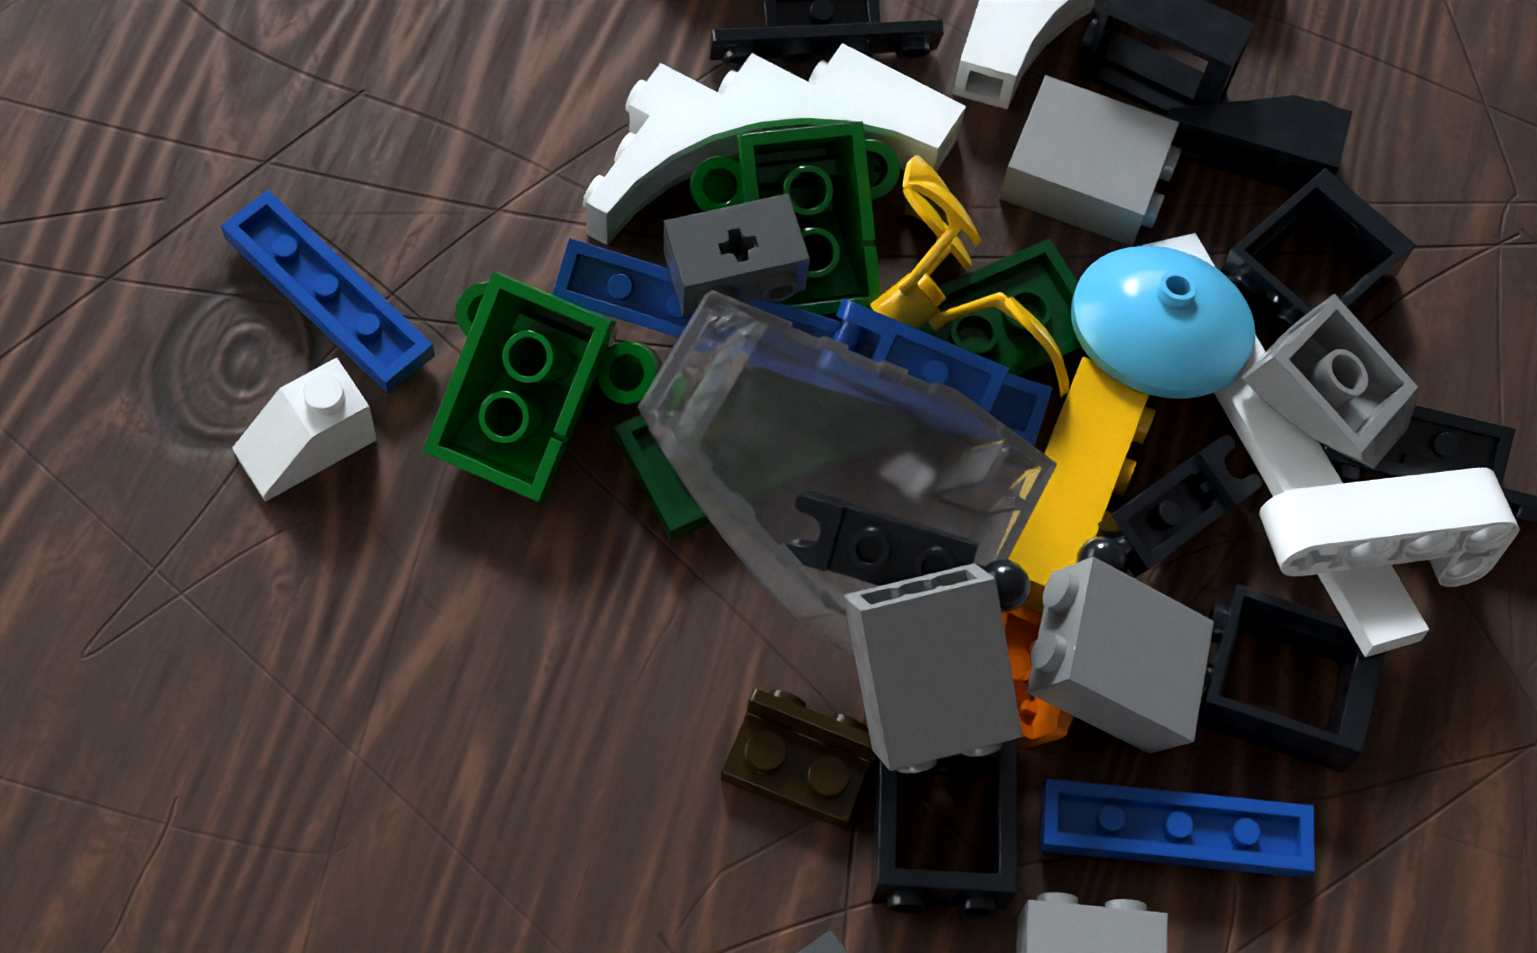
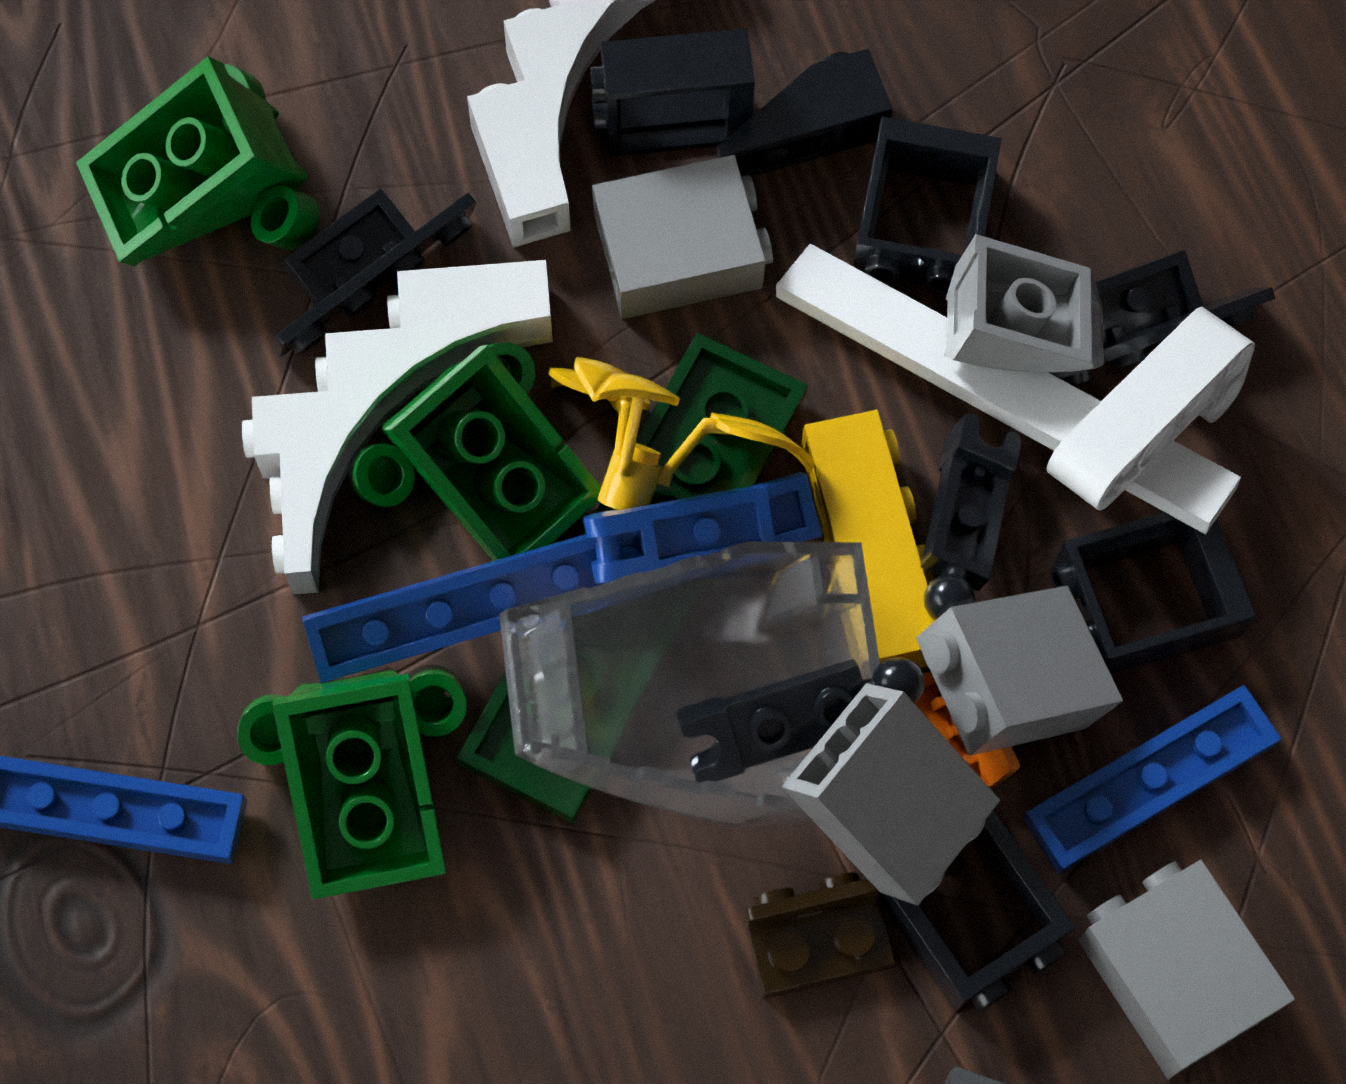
camera: 30 degrees left, 5 degrees up
(305, 430) = (189, 951): white slope -> none
(758, 233) = (471, 510): dark grey brick -> none
(1163, 322) = (845, 370): medium azure dish -> none

